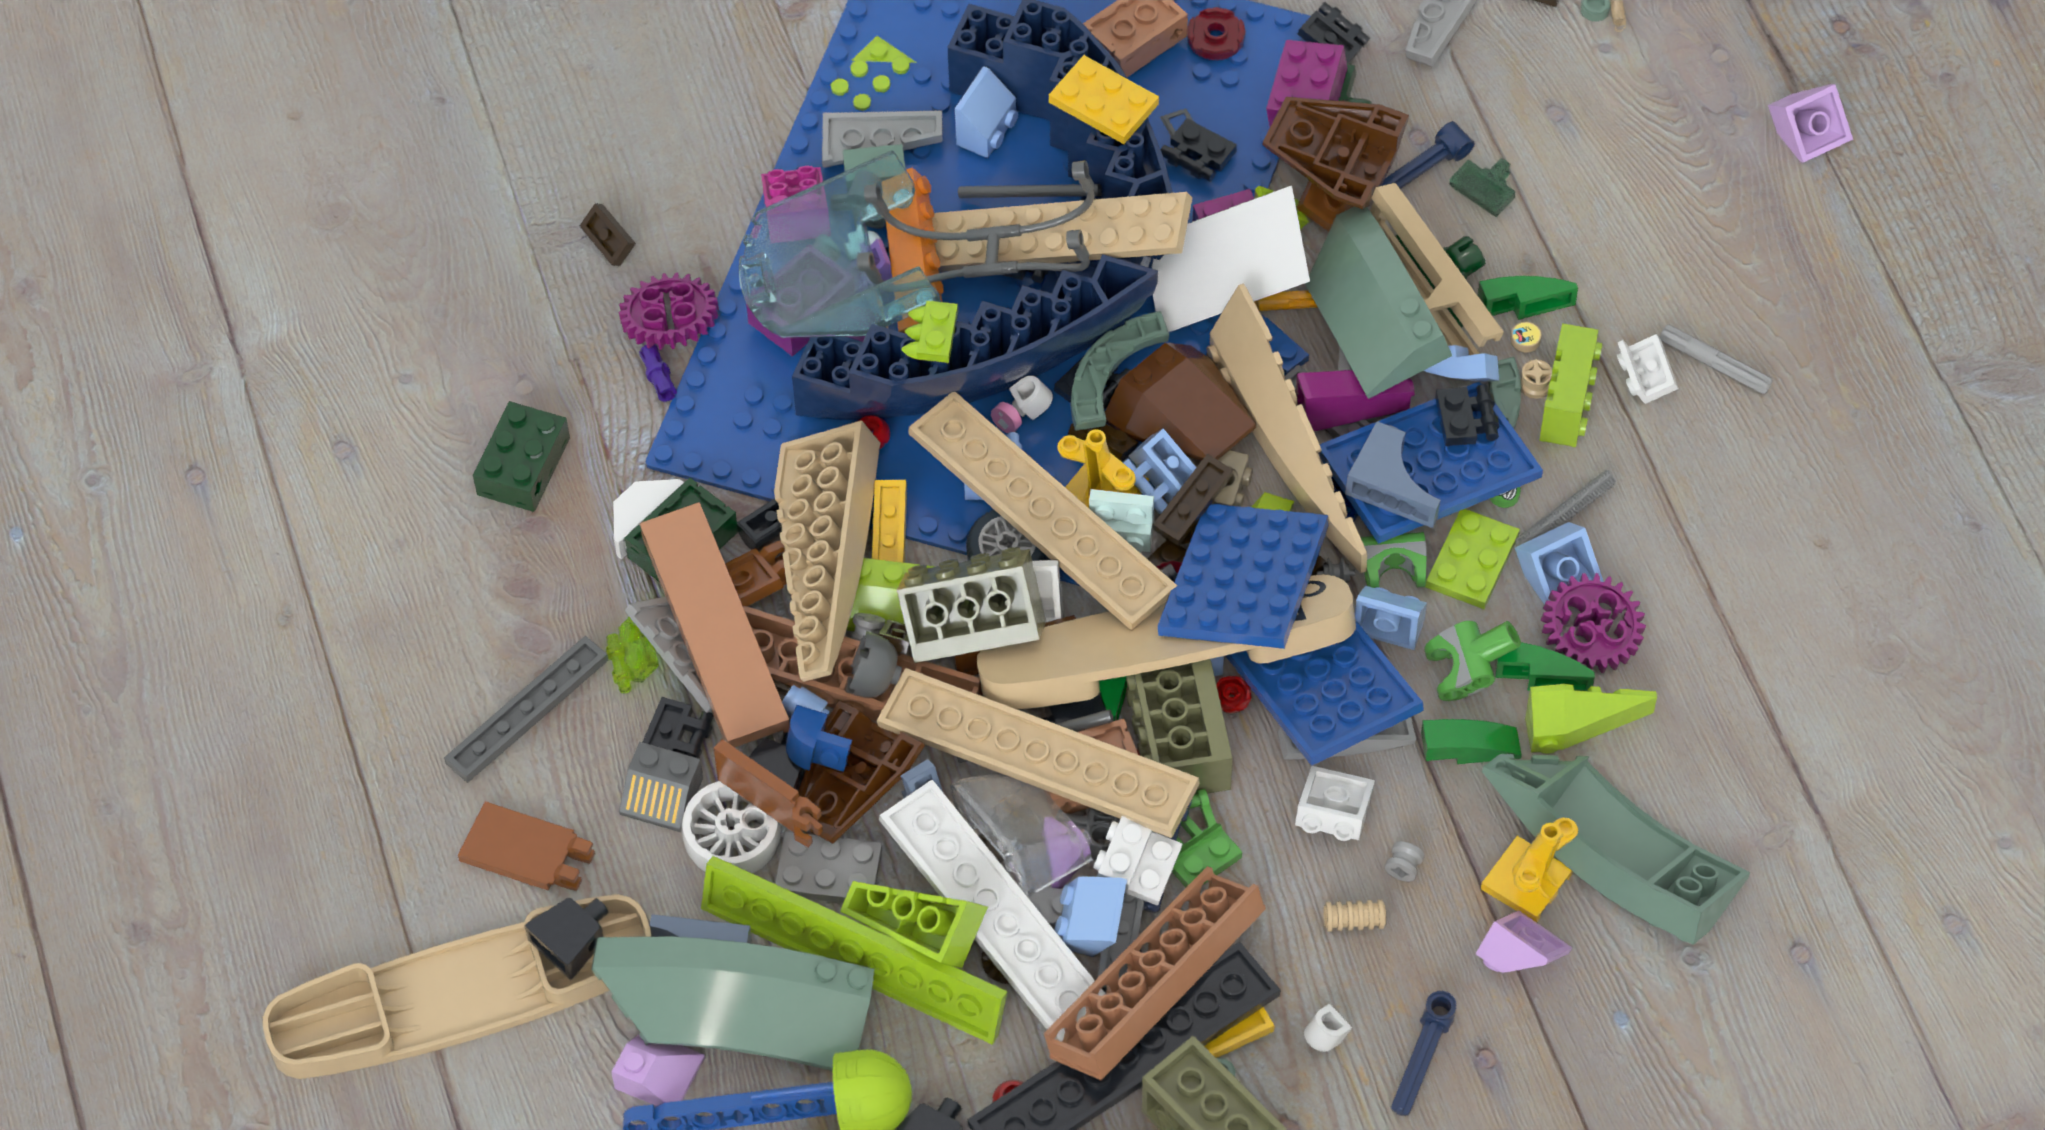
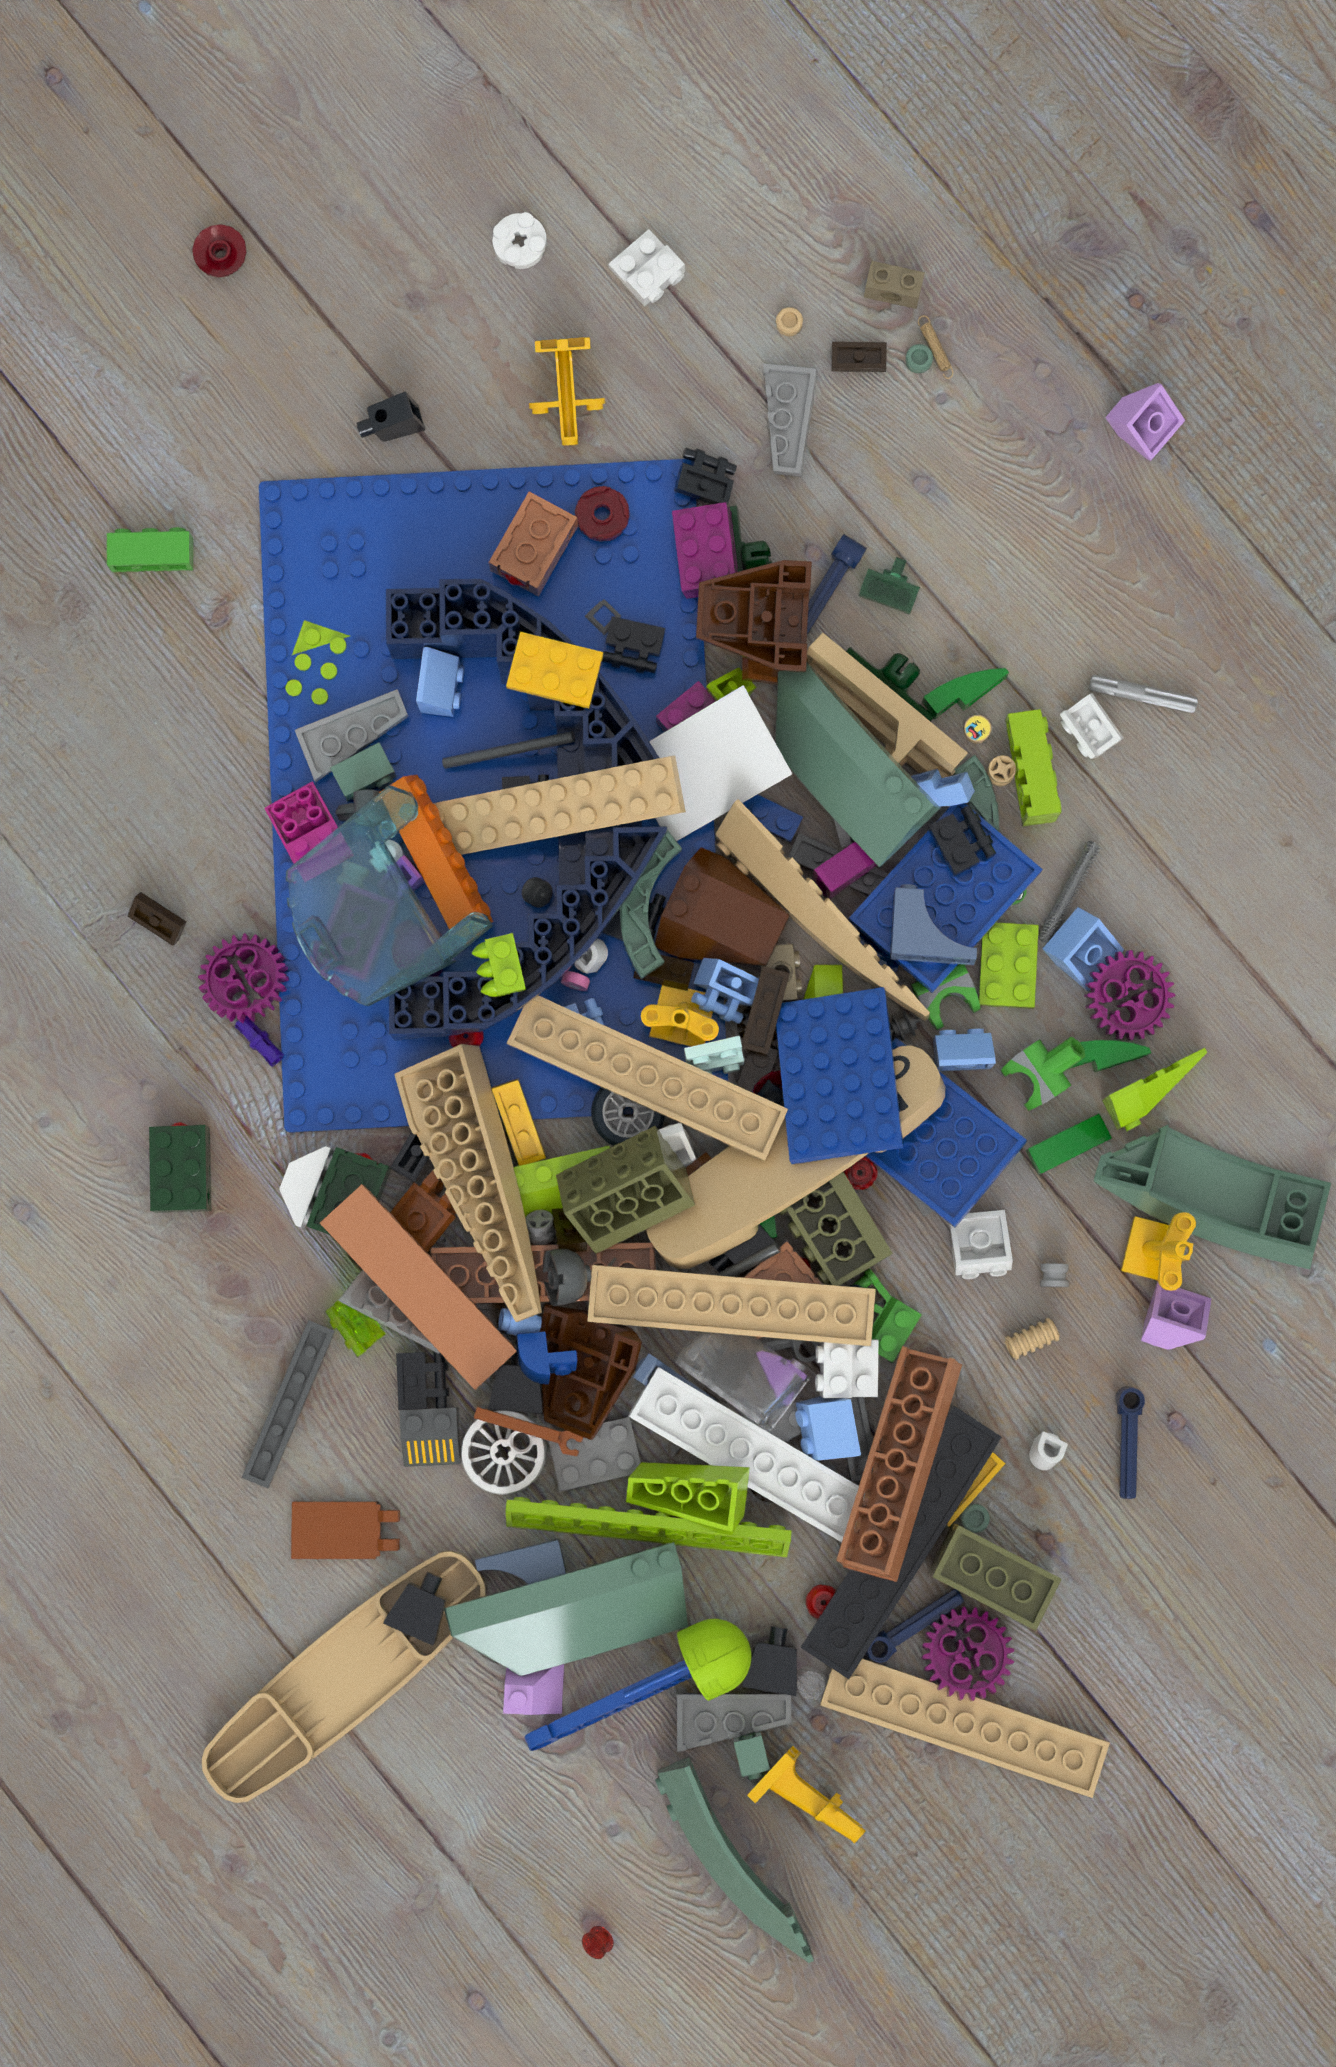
camera: 20 degrees left, 25 degrees up
(1074, 238) = (595, 848): dark grey bar -> none

